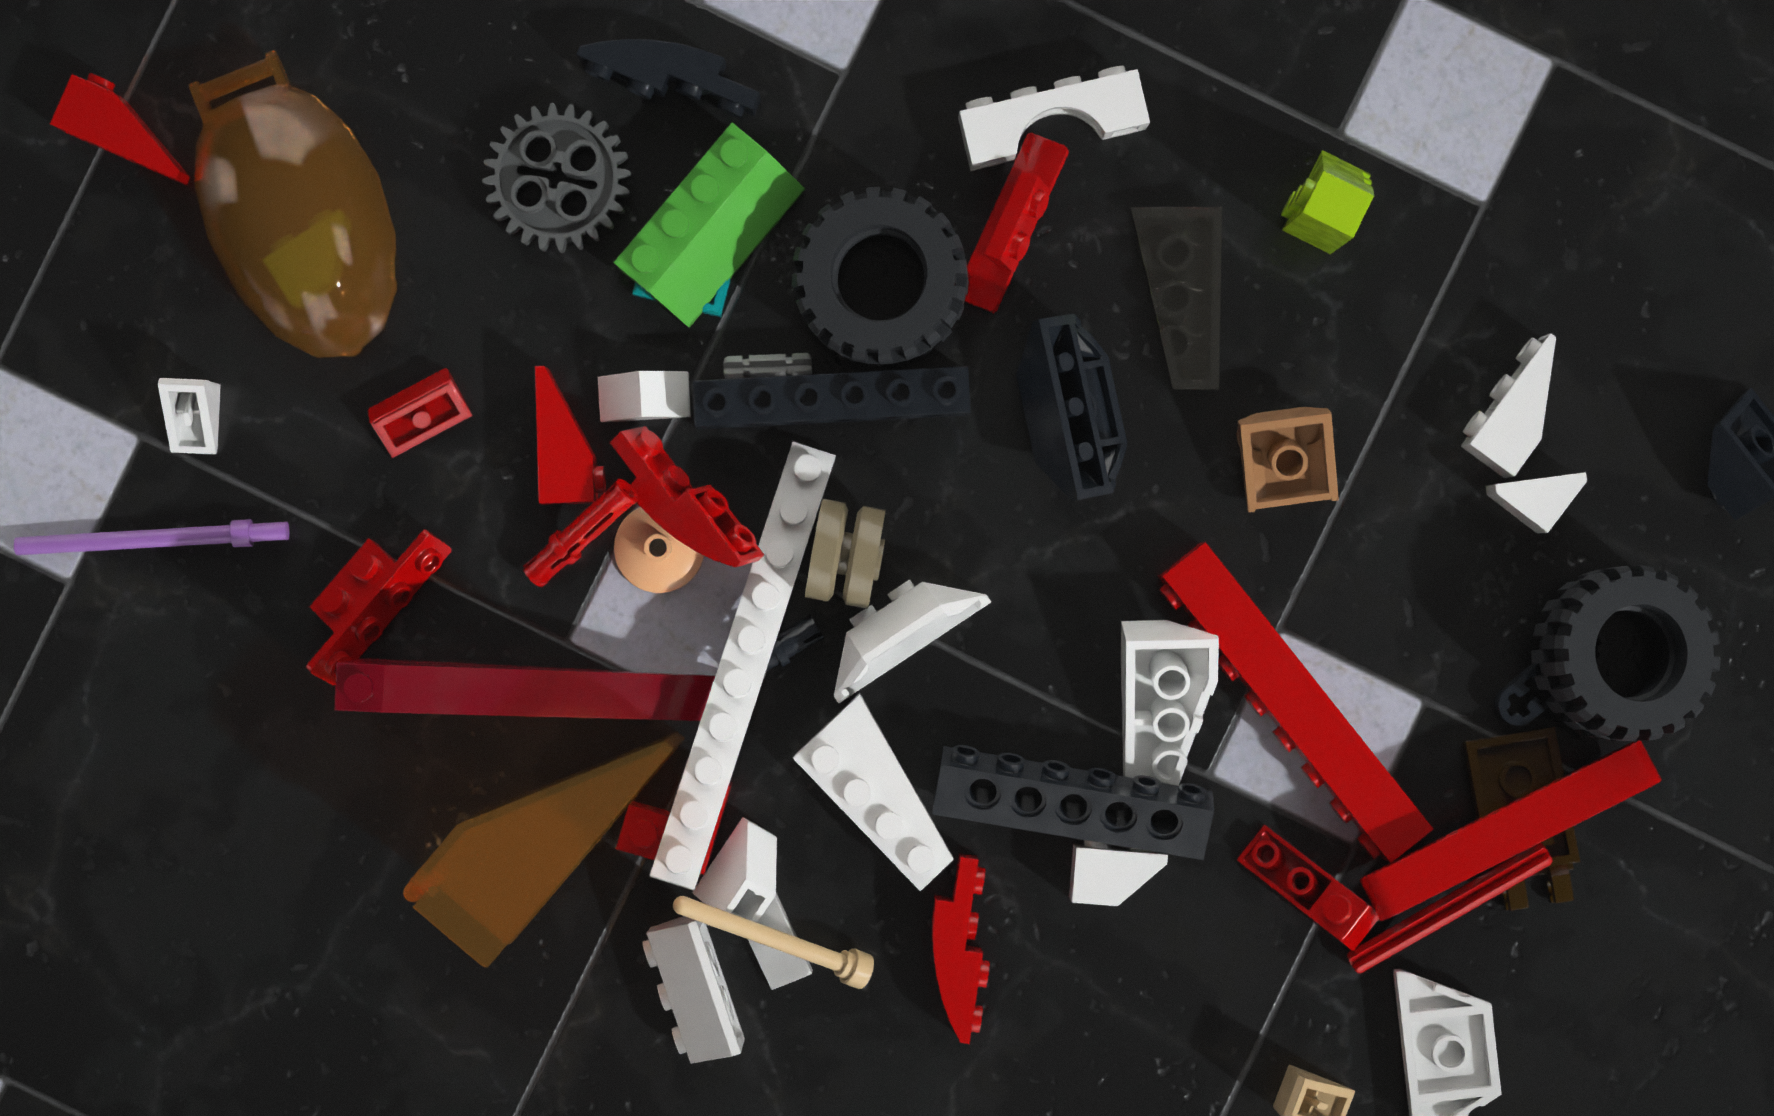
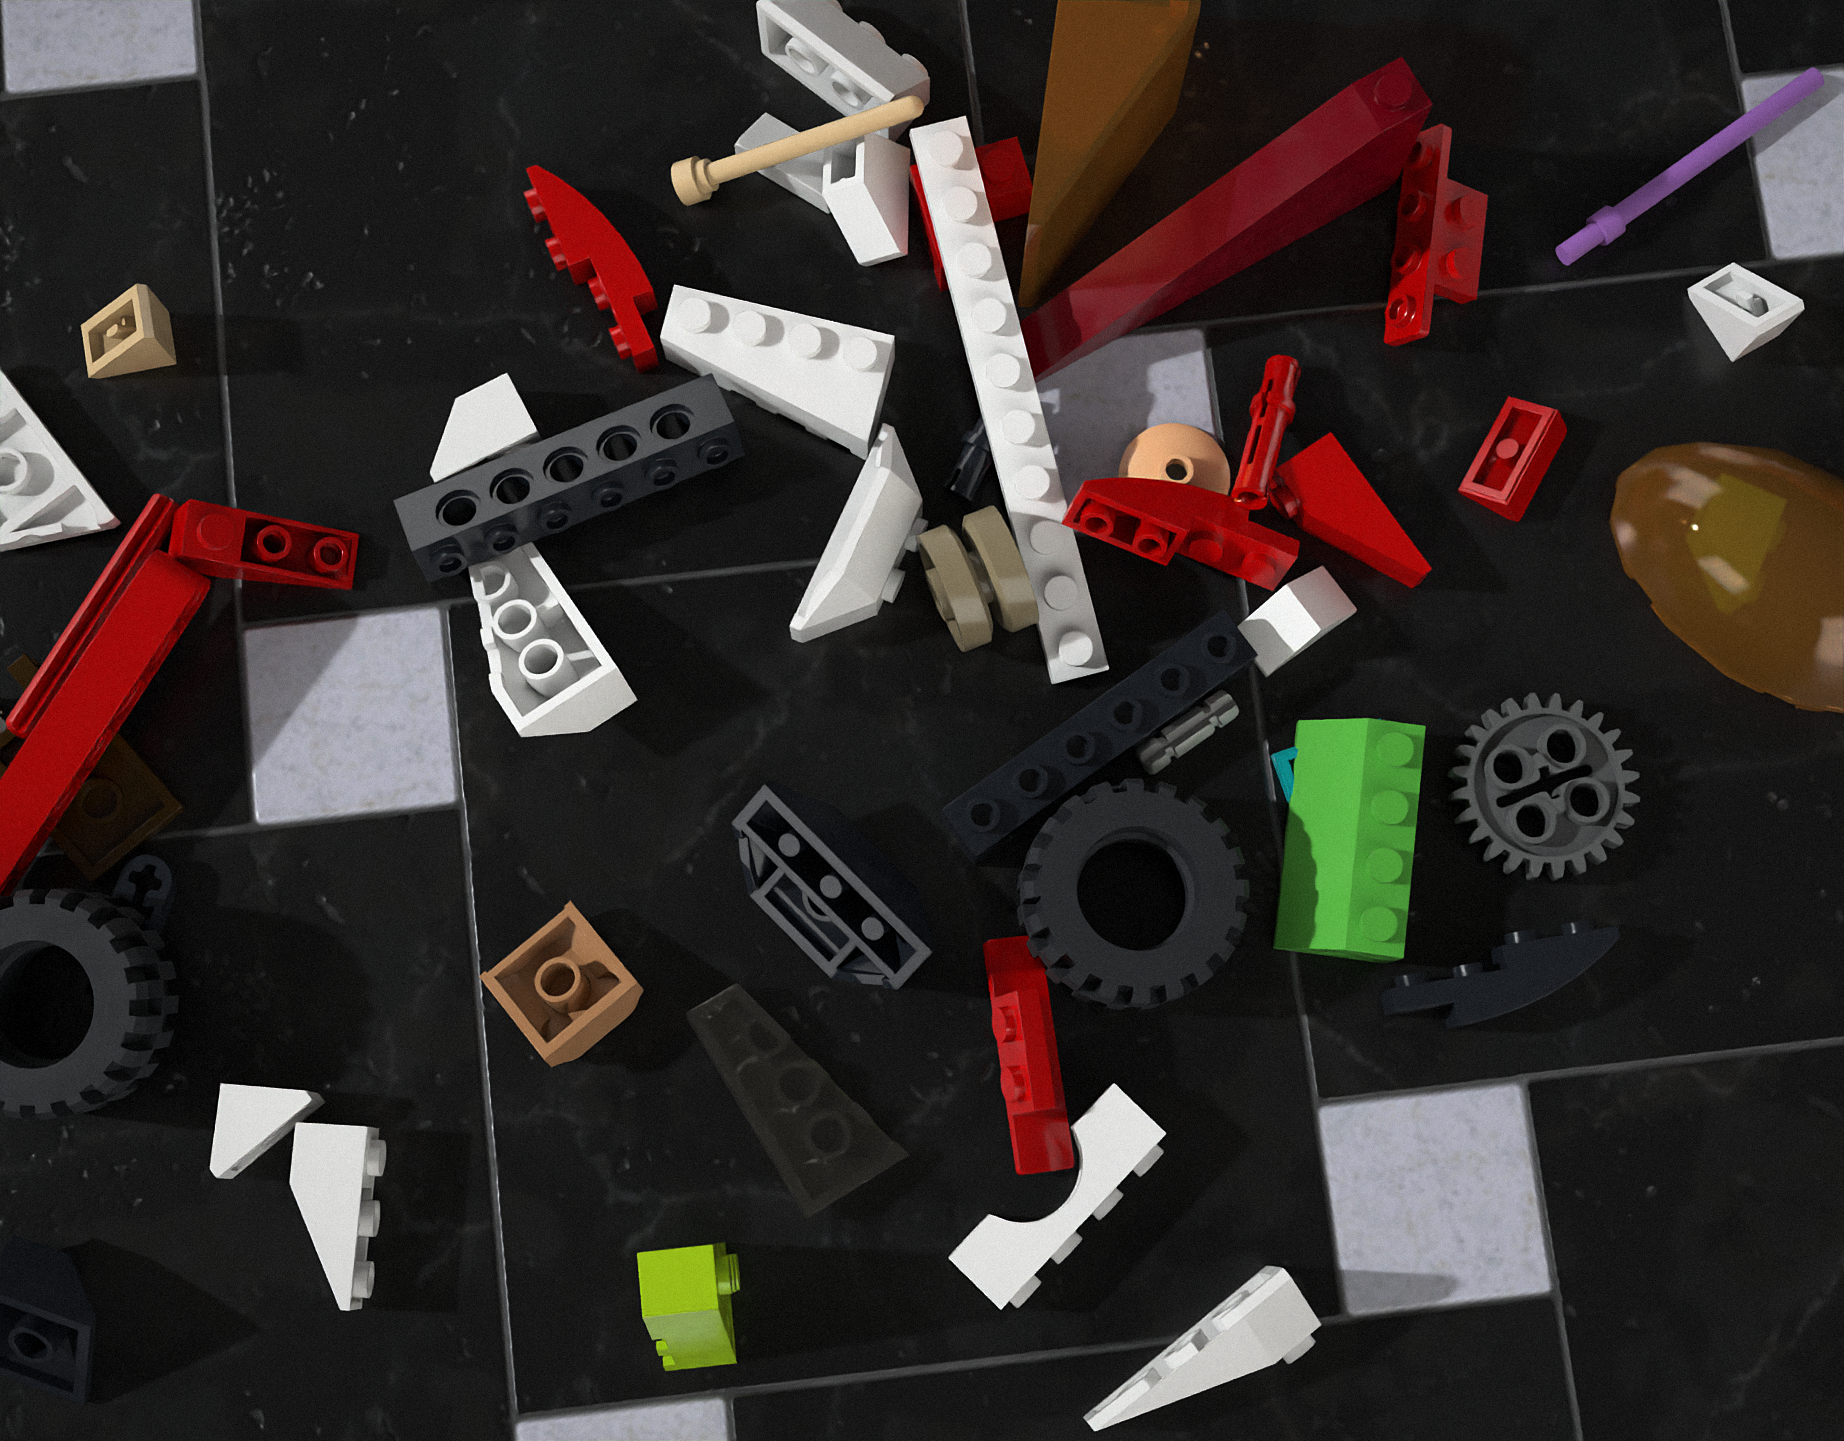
camera: 140 degrees right, 10 degrees down
(1296, 704) = (395, 729): red brick -> none

